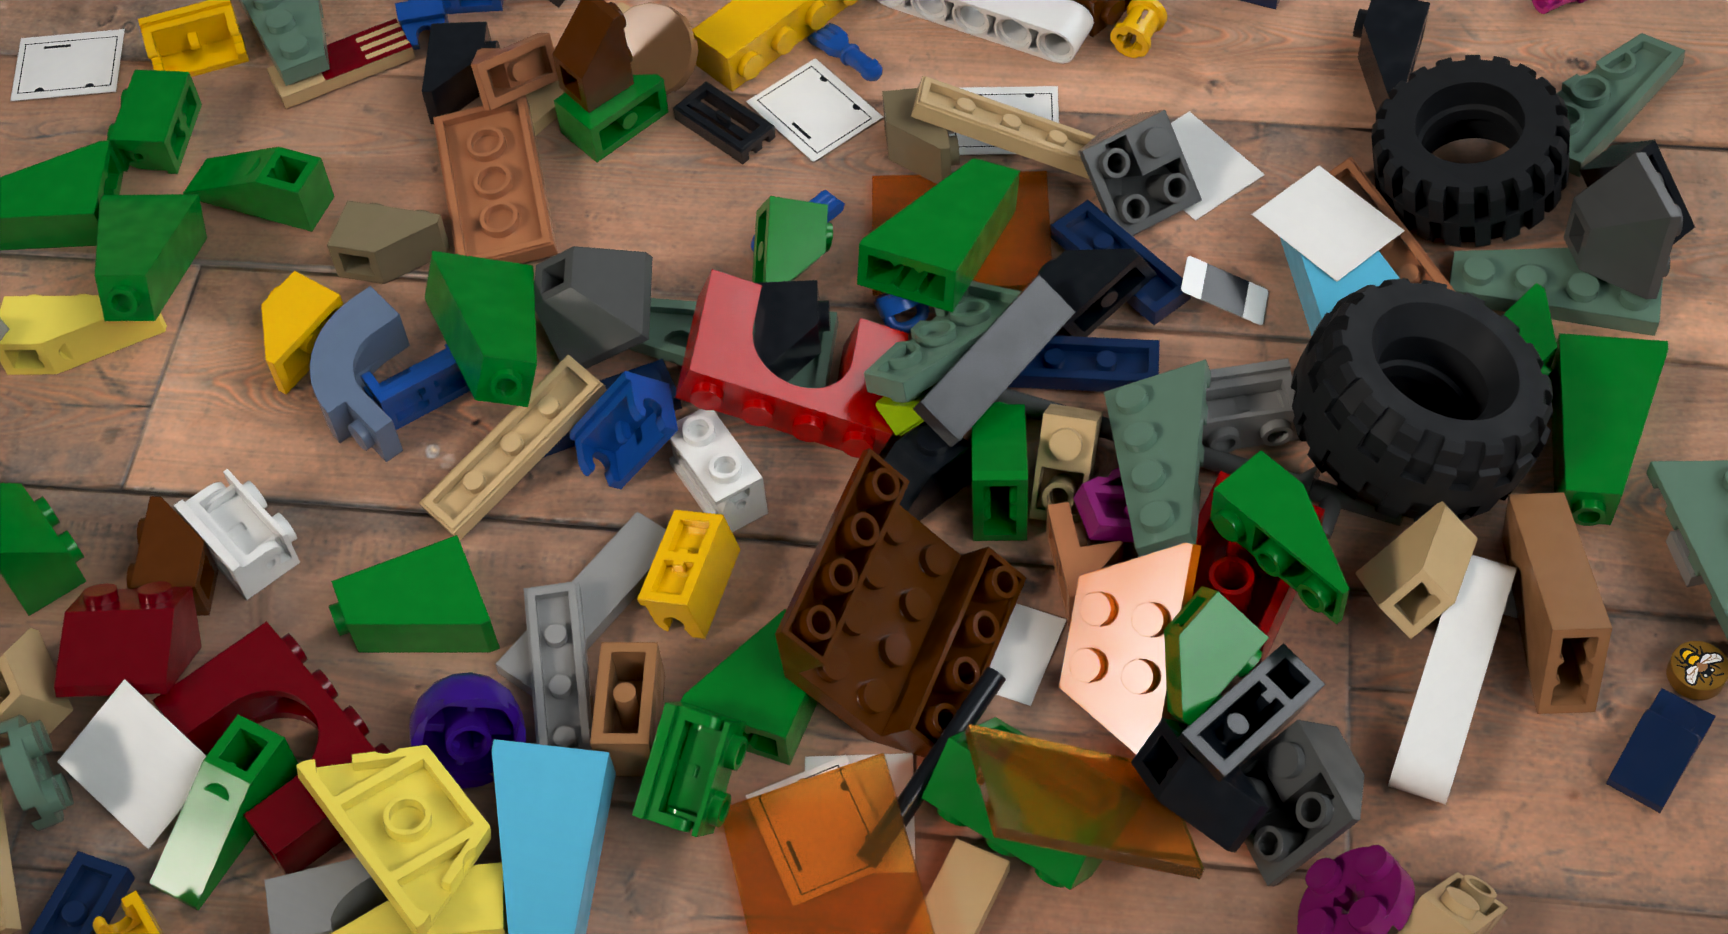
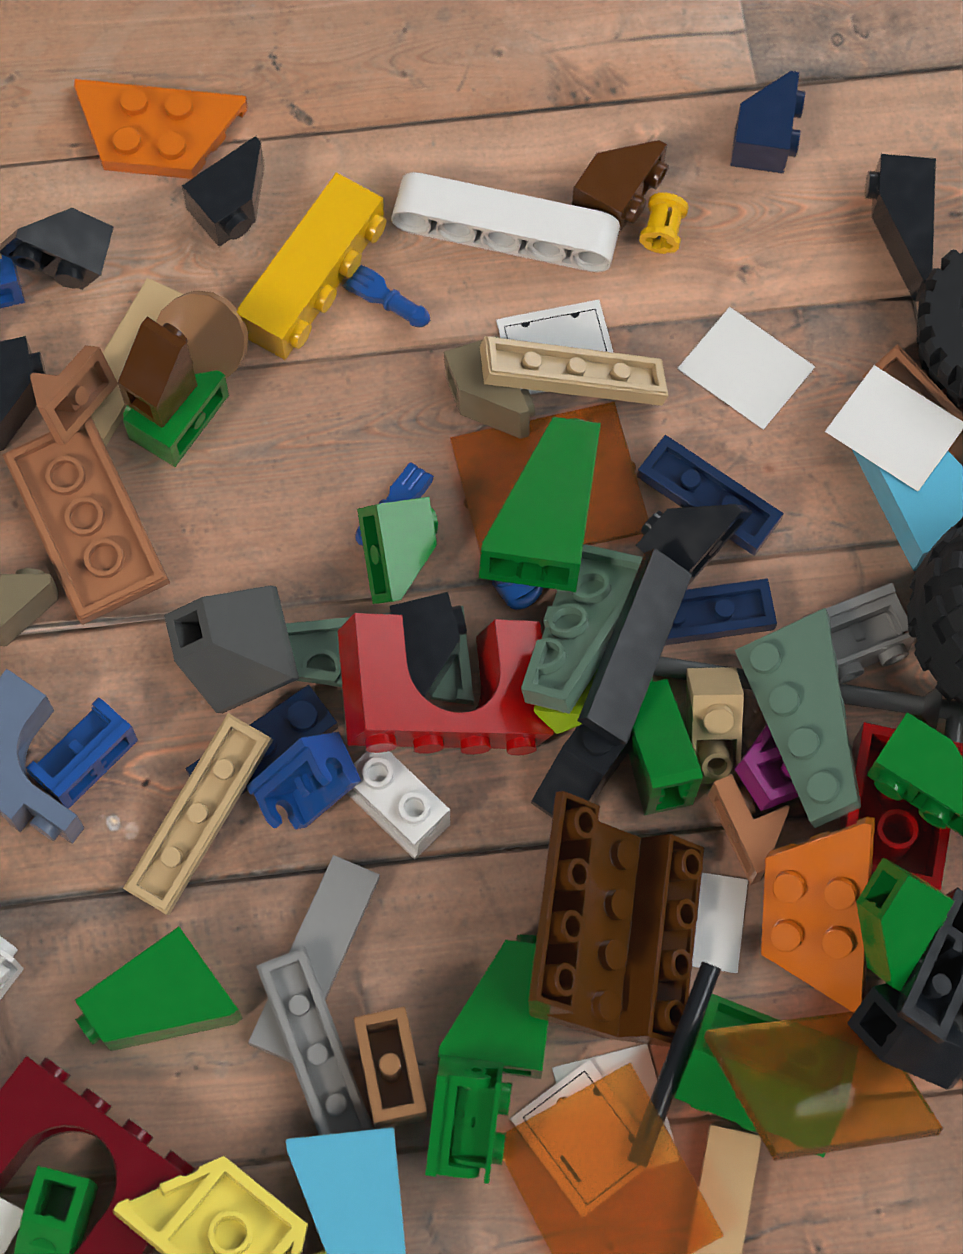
camera: 20 degrees left, 15 degrees up
(461, 720) = (246, 1117): dark purple cylinder -> none
(487, 323) = (140, 693): green slope -> none
(690, 571) = (401, 910): yellow hinge -> none
(717, 126) = (282, 416): black tile -> none
(814, 109) = (371, 367): white sticker -> none
(1140, 171) = (705, 393): dark grey slope -> none
(1224, 290) = (811, 508): sticker -> none

